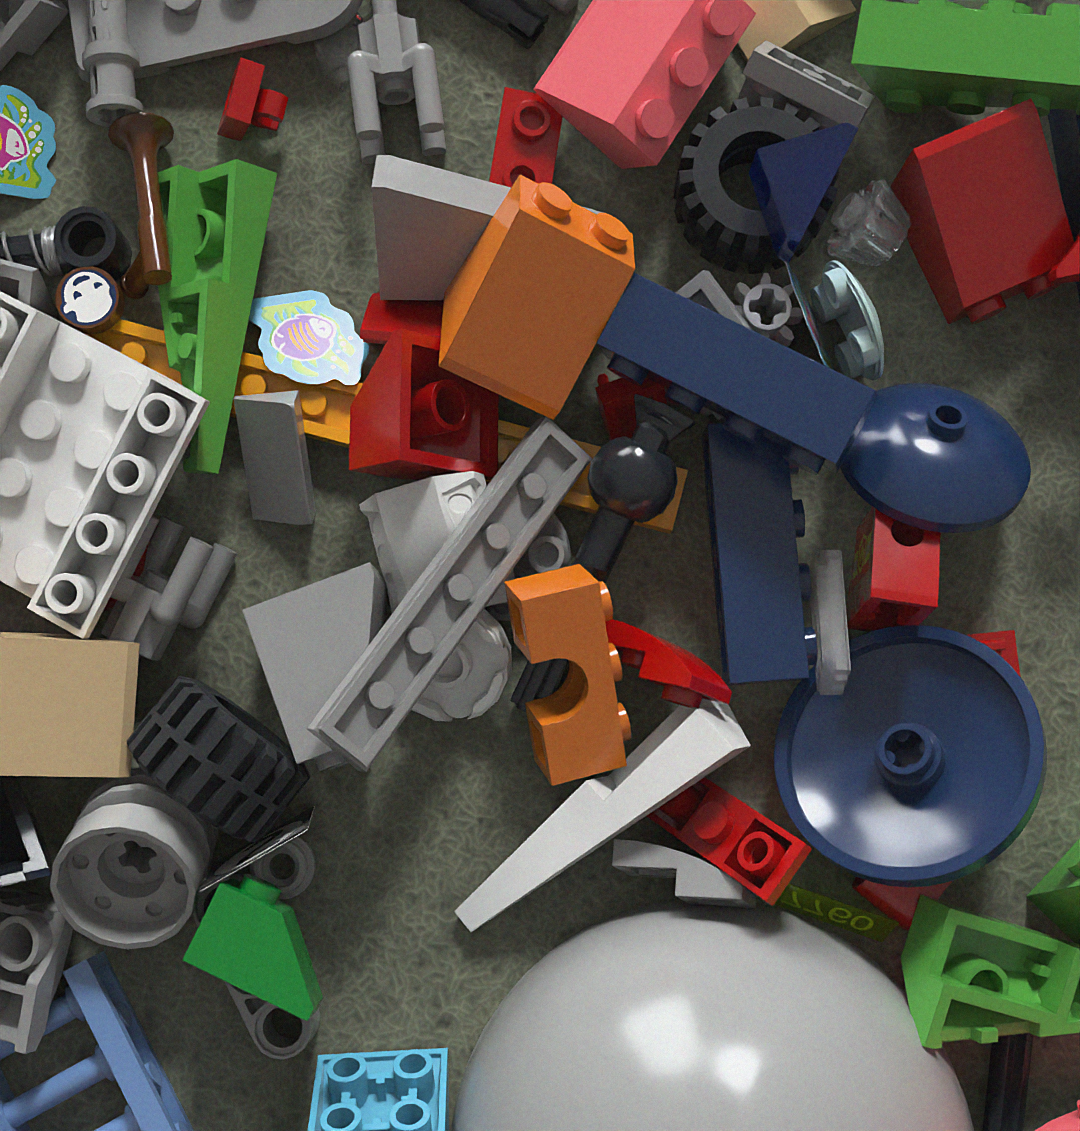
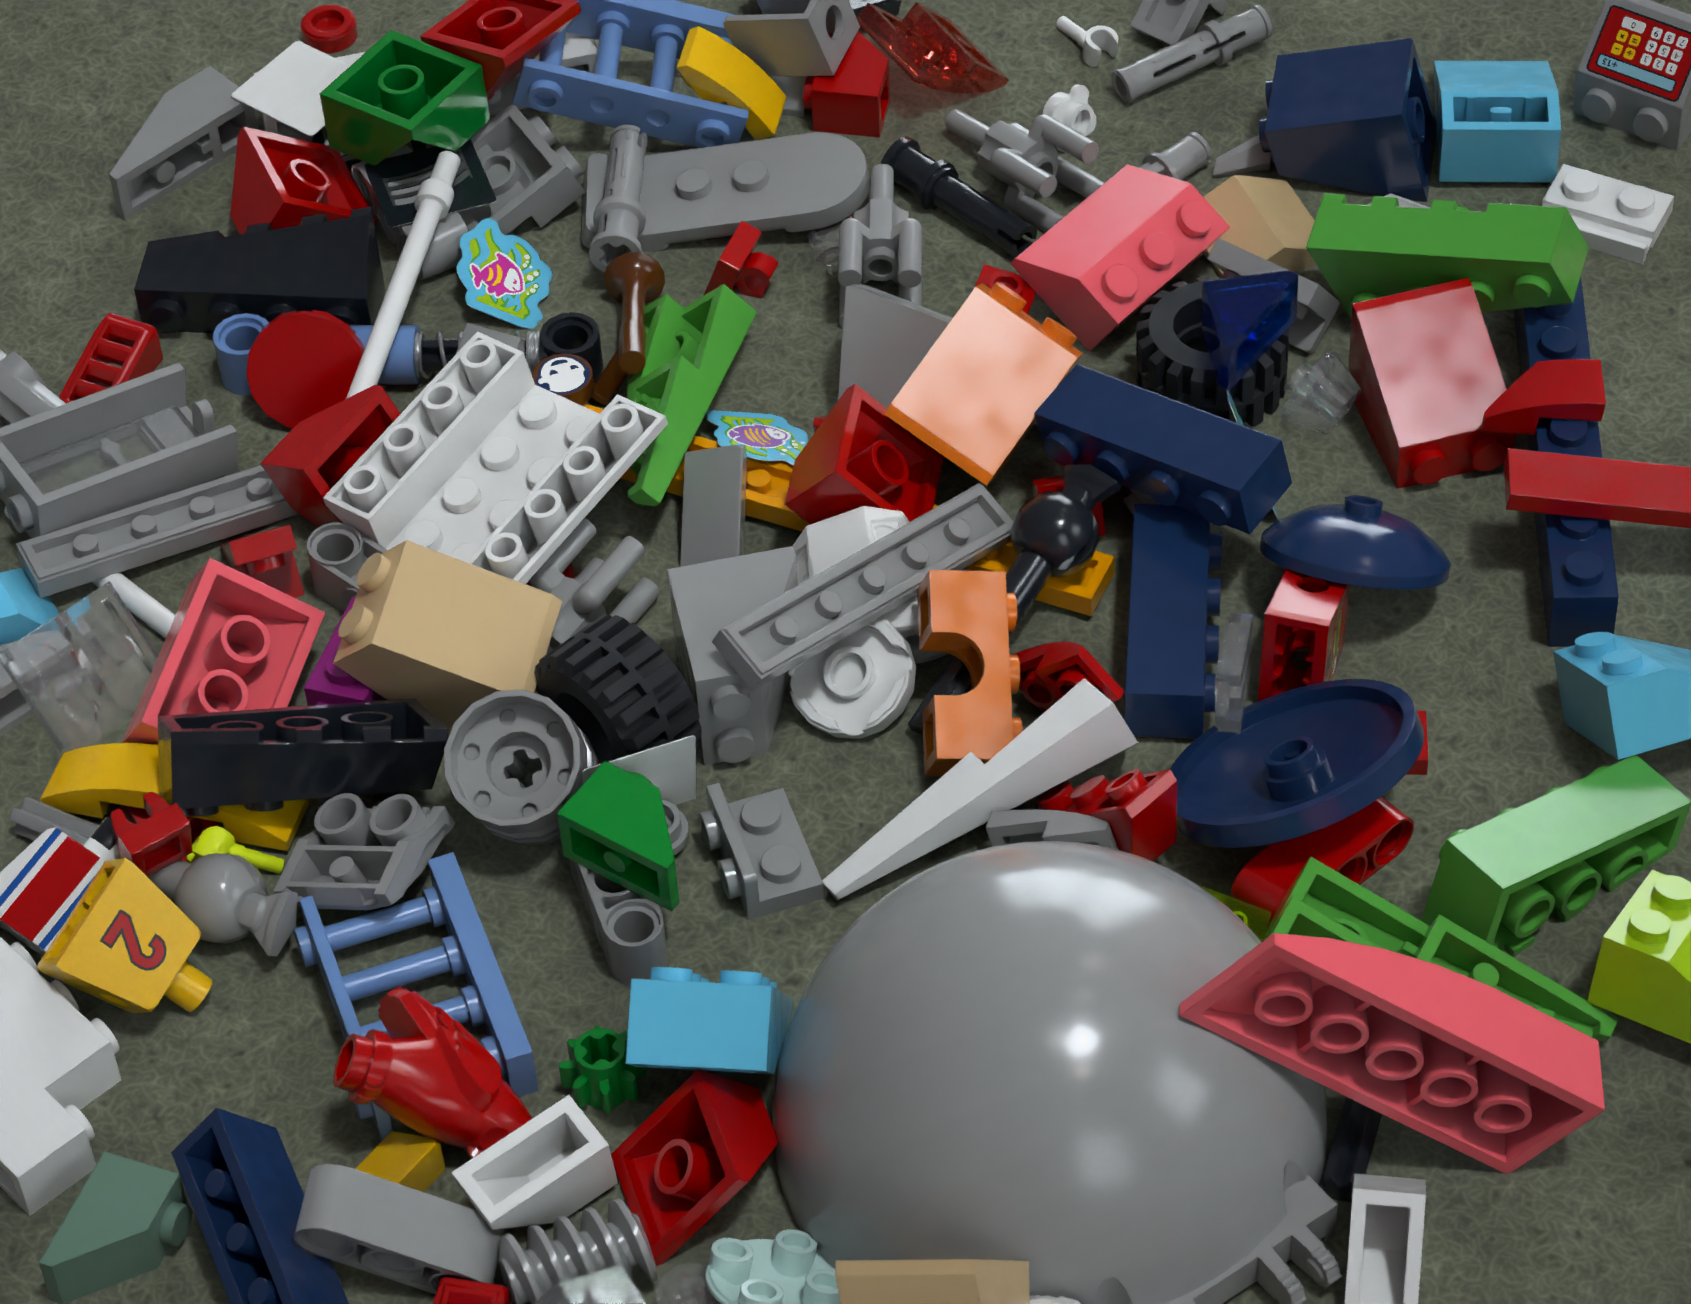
camera: 10 degrees right, 35 degrees down
(389, 881) = (761, 850): none -> light grey bracket
(846, 301) = (1287, 424): light aqua dish -> none

